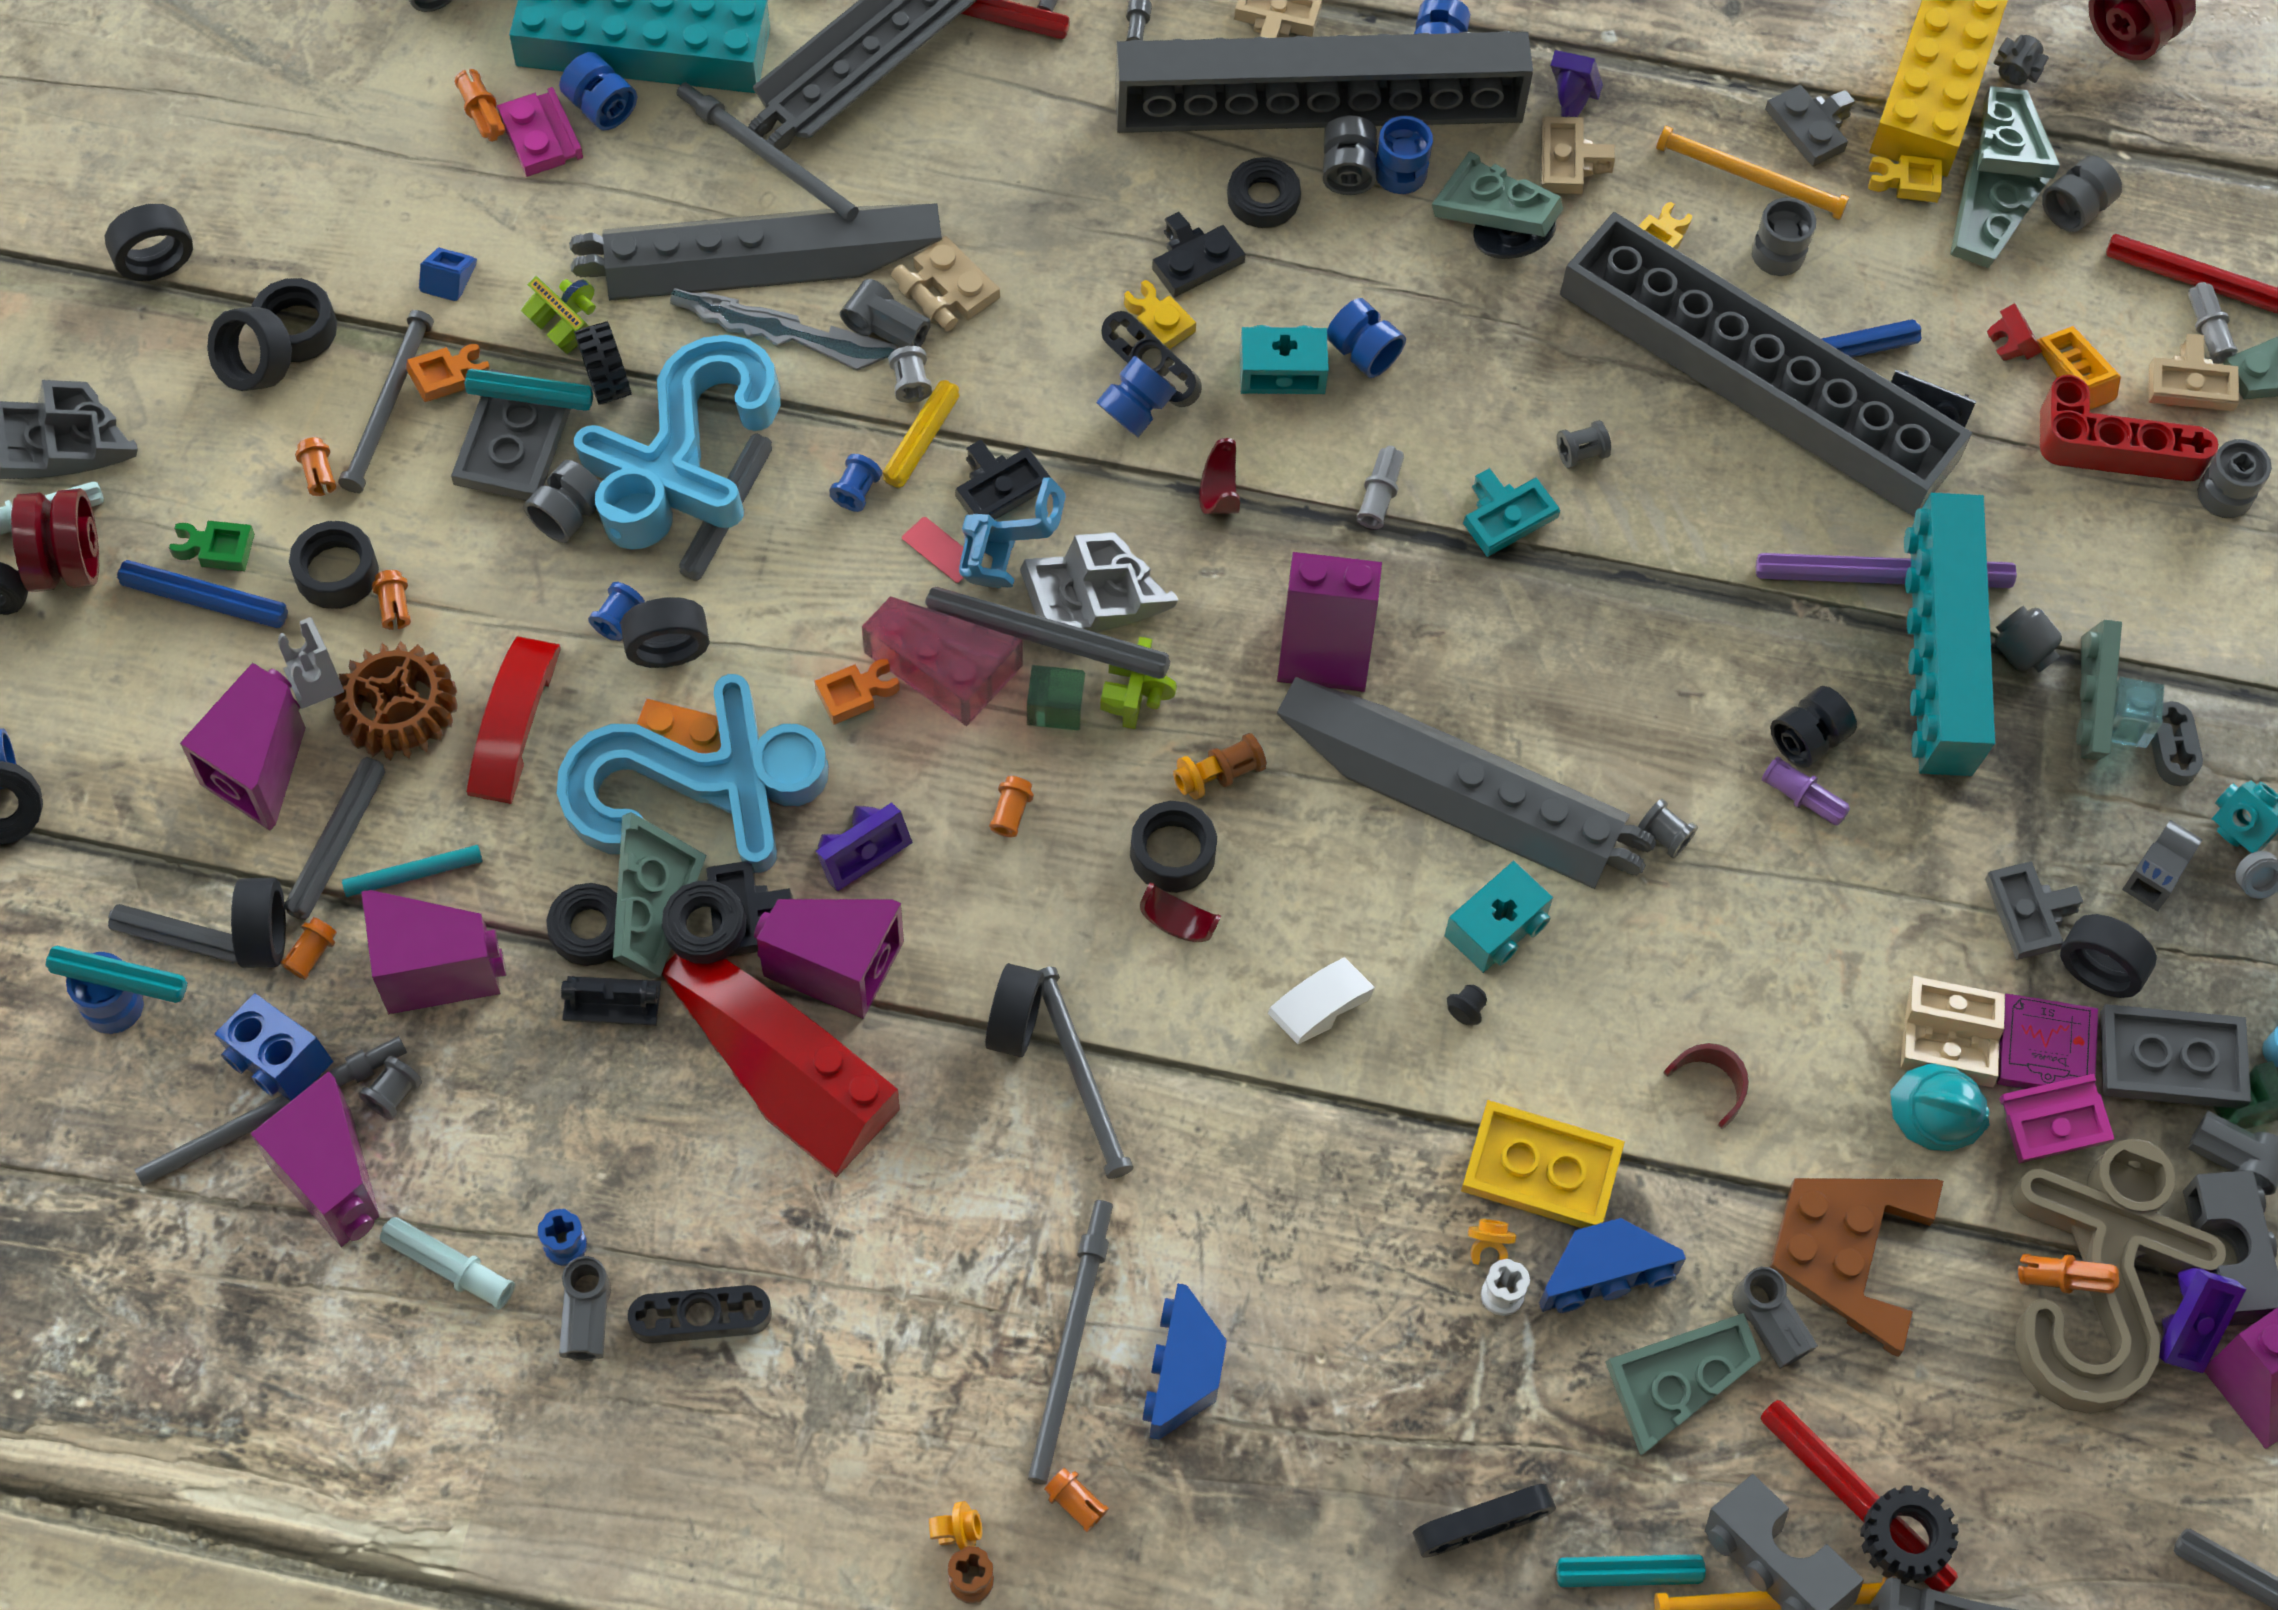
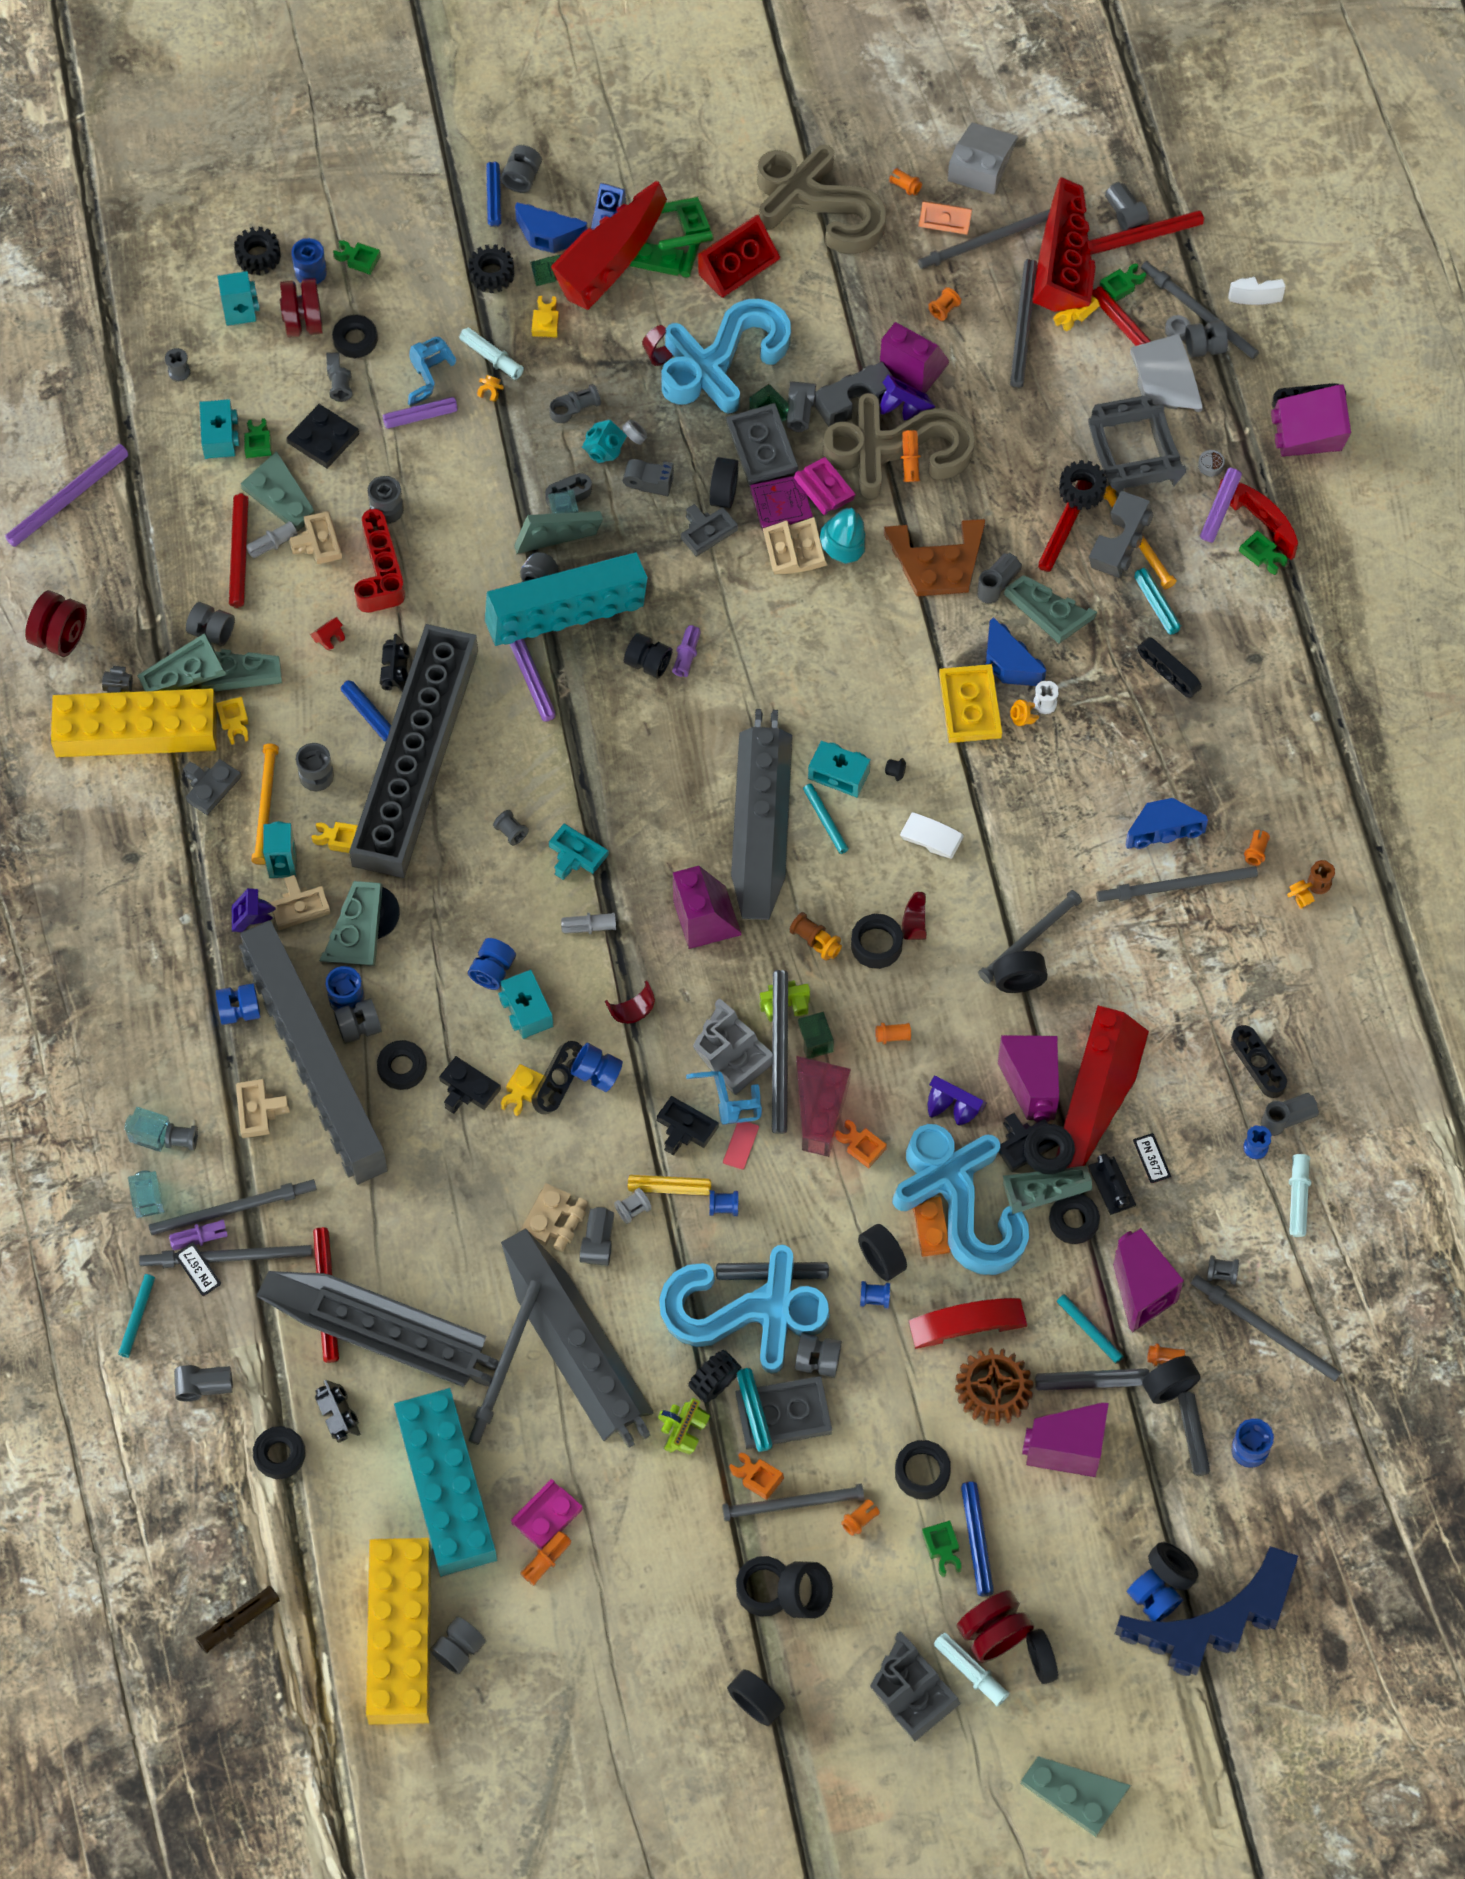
camera: 110 degrees left, 0 degrees up
(116, 974) = (1249, 1422): teal axle -> none
(273, 1048) = (1231, 1334): blue brick -> none
(310, 667) = (1002, 1436): light grey hinge -> none
(321, 1160) = (1285, 1271): magenta slope -> none
(391, 589) = (928, 1425): orange pin -> none
(446, 273) = (680, 1517): blue slope -> none
(598, 91) = (502, 1493): blue wheel -> none
(629, 1084) = (1152, 1158): none -> sticker
(781, 327) = (629, 1301): light grey sword -> none
(1422, 870) = (825, 818): none -> teal piece
(1658, 145) = (279, 850): none -> teal brick
(1668, 828) = (744, 707): dark grey bush -> none
(1725, 1060) = (875, 630): dark red helmet -> none
(2103, 378) = (327, 593): light orange slope -> none

